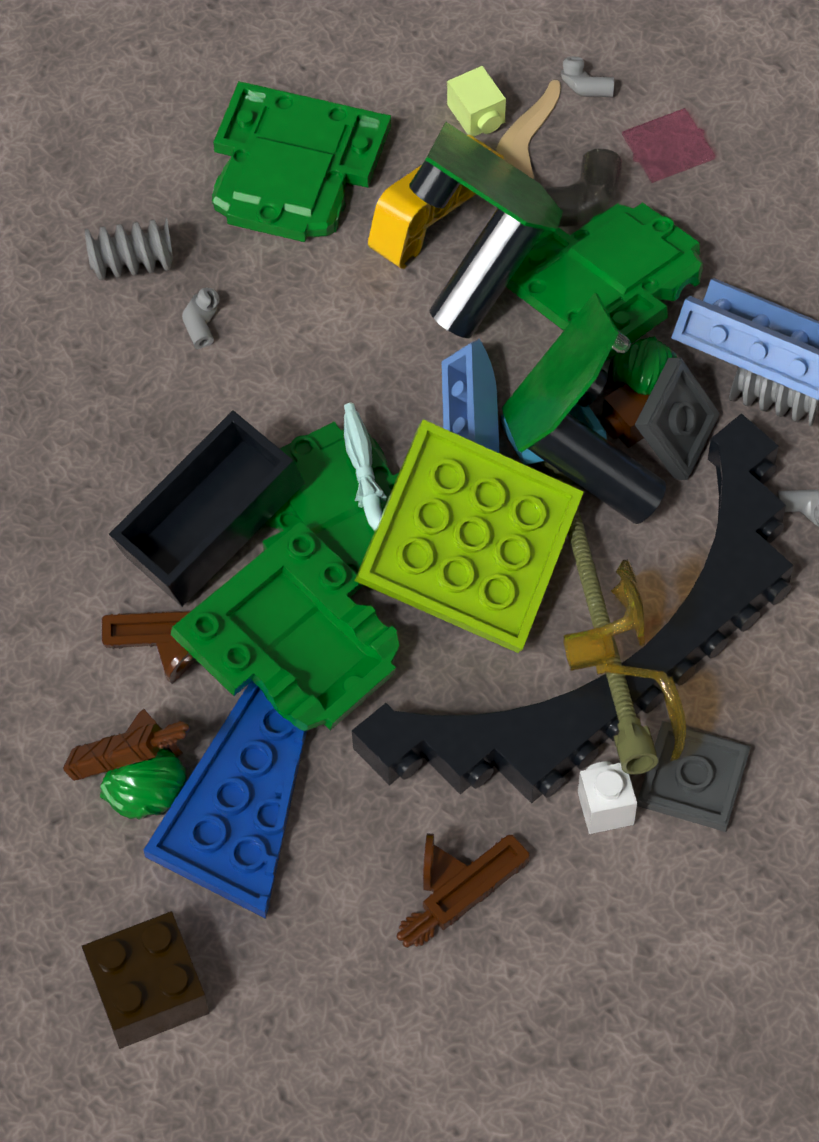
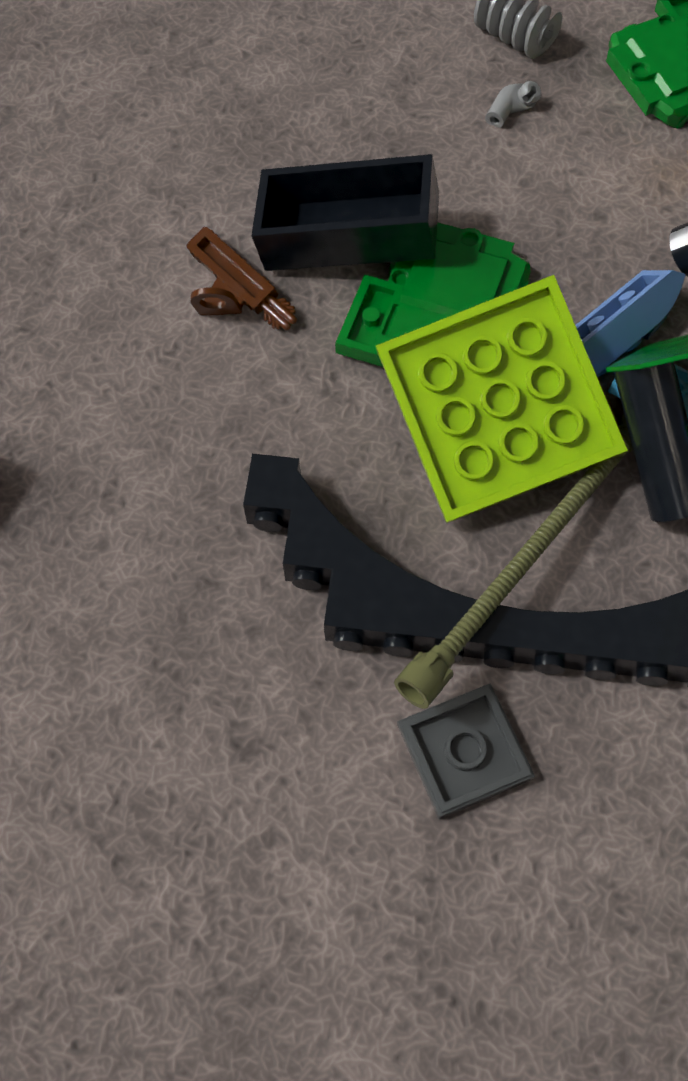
camera: 50 degrees right, 5 degrees up
(135, 745) = (102, 318): reddish brown piece -> none
(144, 786) = (96, 355): green hair -> none
(235, 806) = (133, 427): blue wing -> none
(293, 633) = (298, 350): green piece -> none
(360, 453) = (499, 274): light aqua piece -> none
(459, 886) = (196, 638): reddish brown piece -> none
(596, 646) = (488, 569): clear yellow plant -> none
(606, 797) = (370, 692): white brick -> none

